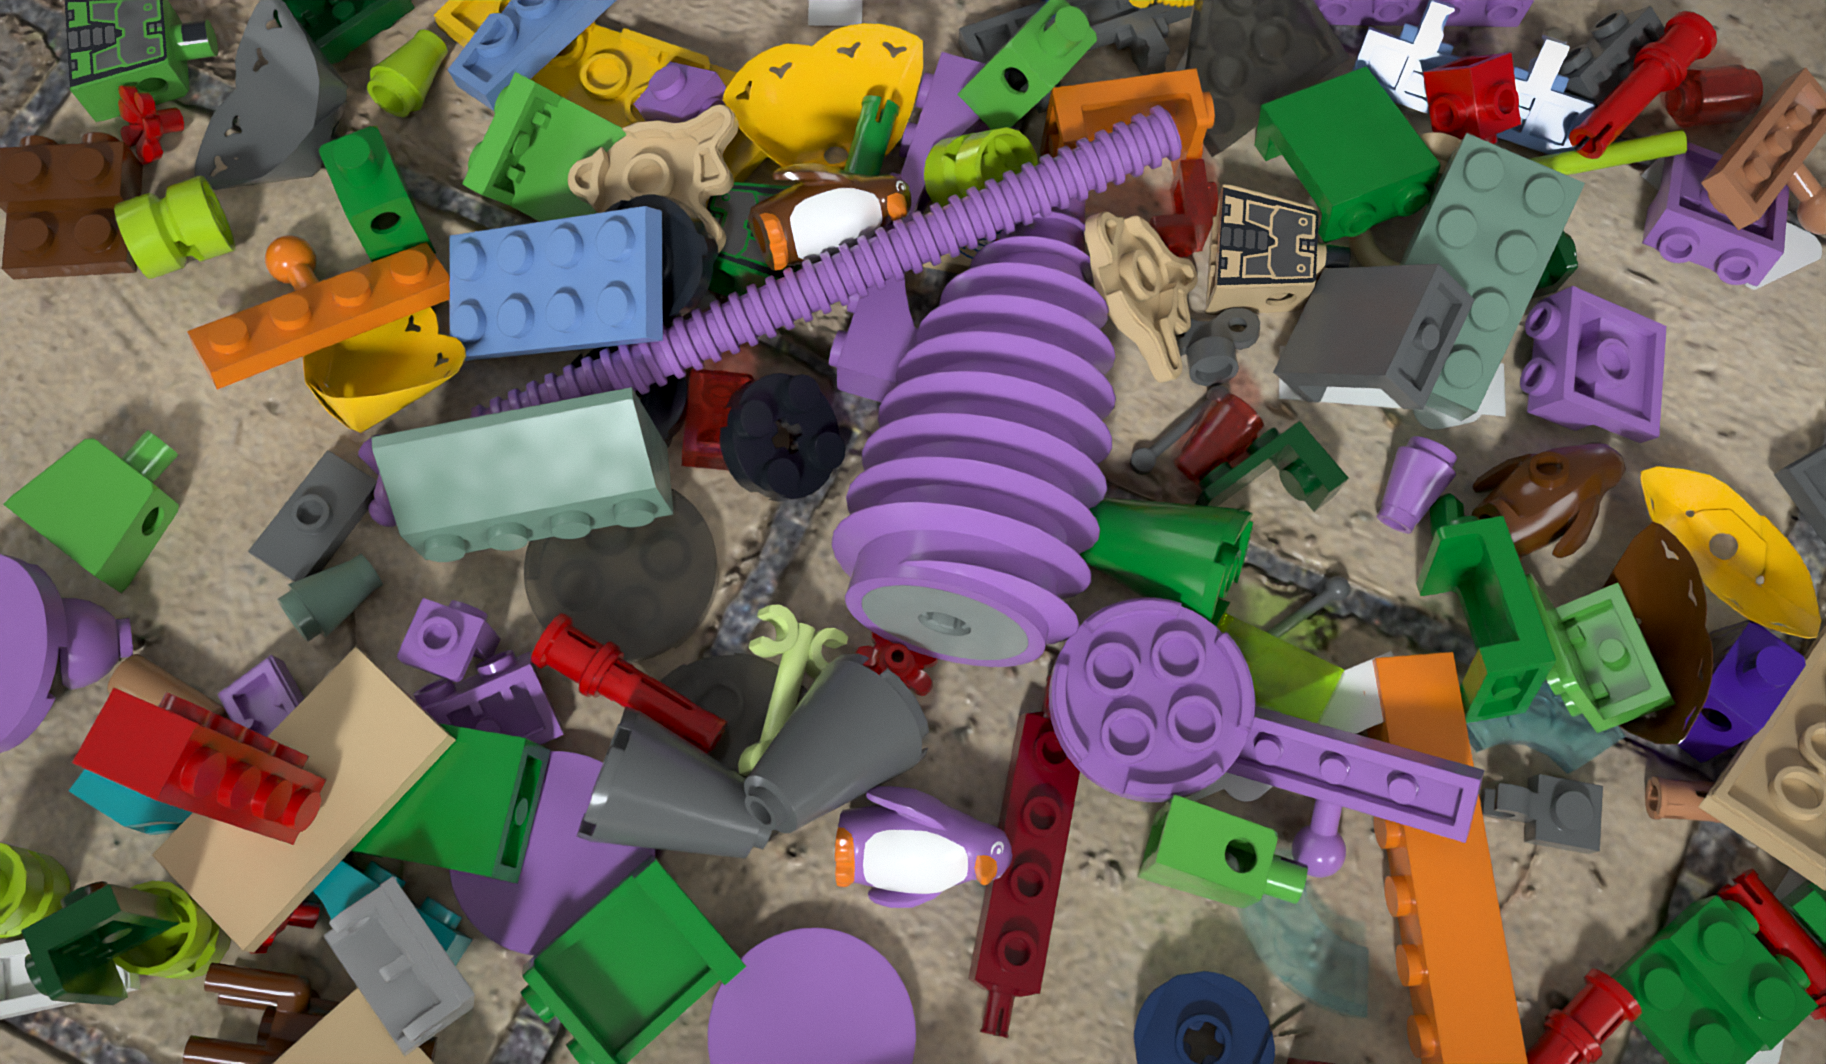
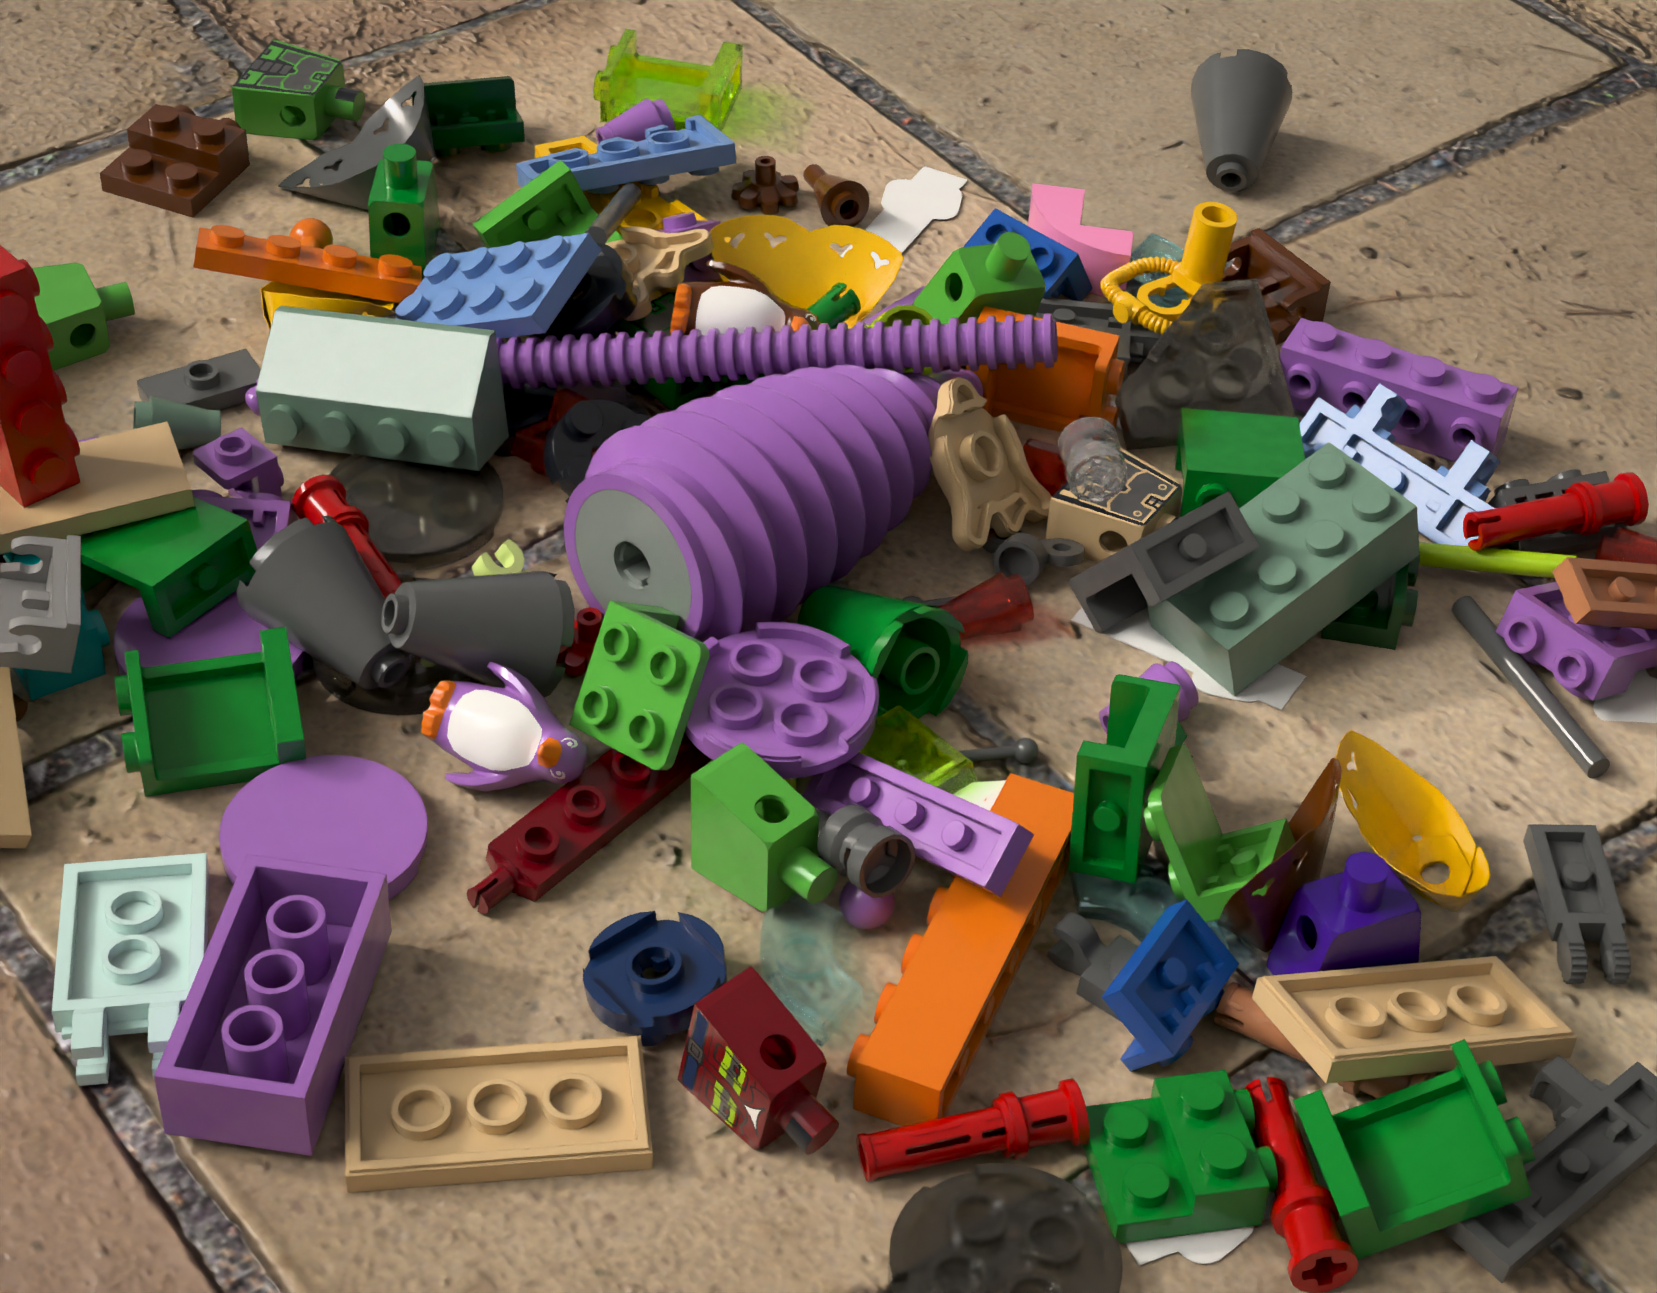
camera: 30 degrees right, 30 degrees down
(146, 123) = (272, 135): red plant -> none
(175, 227) = (236, 188): lime wheel -> none
(406, 75) = (484, 174): lime cone -> none
(607, 118) = (614, 213): none -> dark grey bar
(1023, 751) = (641, 683): none -> bright green bracket
(1245, 234) = (1093, 459): none -> clear wheel
(1303, 465) = (1024, 633): dark green bracket -> none
(1323, 835) = (856, 847): none -> dark grey wheel
(1473, 96) = (1387, 450): red brick -> none
(1550, 495) = (1262, 746): reddish brown animal -> none
(1595, 365) = (1383, 686): medium lavender plate -> none
(1632, 831) = (1169, 986): none -> blue bracket
(1690, 287) = (1531, 688): none -> dark grey bar

